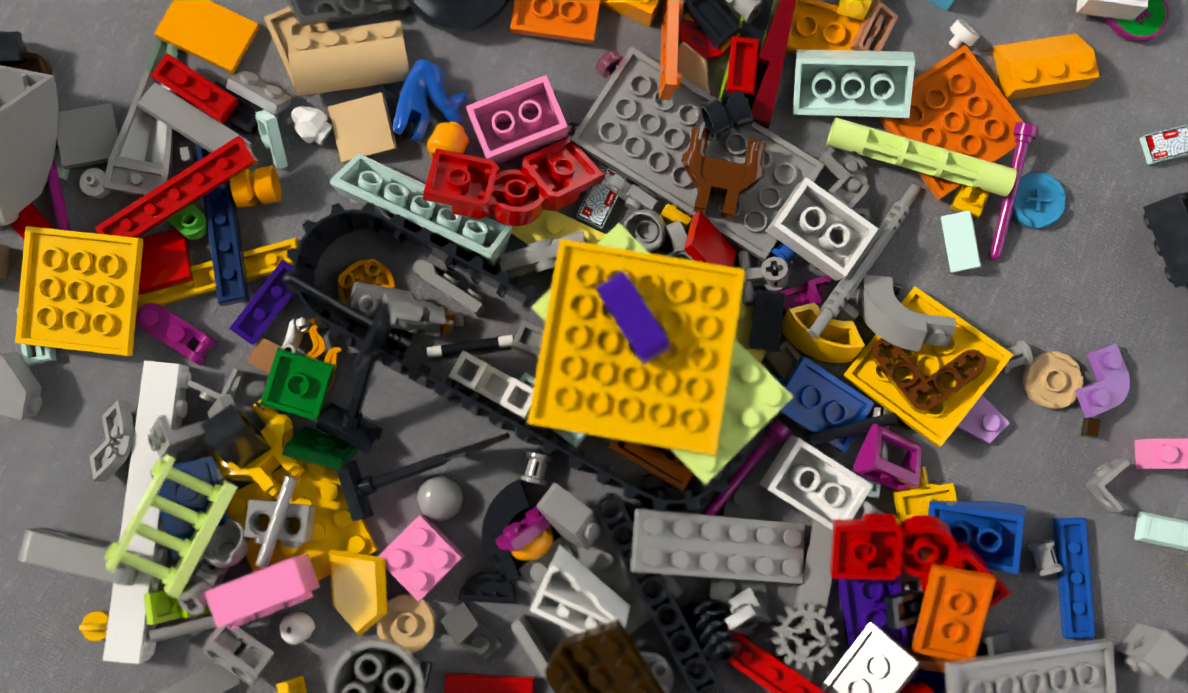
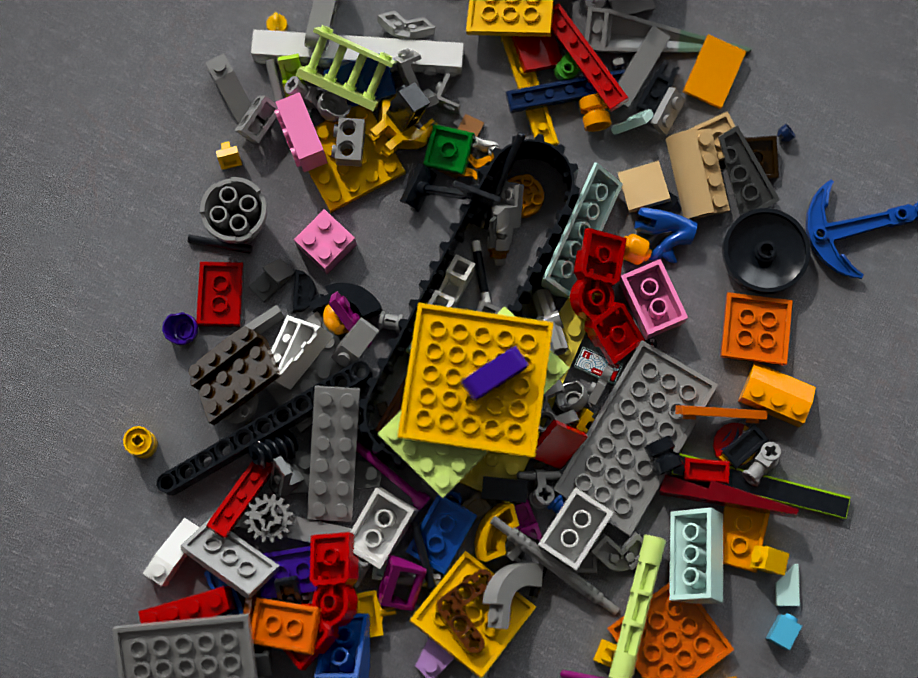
camera: 90 degrees right, 5 degrees down
(174, 331) = (485, 63): magenta plate -> none
(195, 88) = (667, 65): red tile -> none
(263, 306) = (505, 122): dark purple plate -> none
(276, 521) = (349, 138): light grey bar -> none
(296, 627) = (275, 158): white piece -> none
(311, 124) = (644, 149): white rock -> none
(319, 449) = (401, 166): dark green tile -> none
(357, 488) = (373, 195): black piece -> none
(358, 588) = (302, 198): yellow tile -> none
(408, 622) = (278, 234): tan tile -> none
(439, 498) = (368, 254): light grey hair -> none
(448, 286) = (525, 253): light grey hinge -> none
(608, 63) = (704, 368): clear pink tile -> none
(693, 67) = (704, 432): tan tile -> none
(719, 175) = (615, 453): reddish brown connector -> none
(867, 23) = (738, 584): nougat tile -> none
(961, 241) = (573, 645): light aqua tile -> none
(962, 33) = (744, 649): white tile -> none

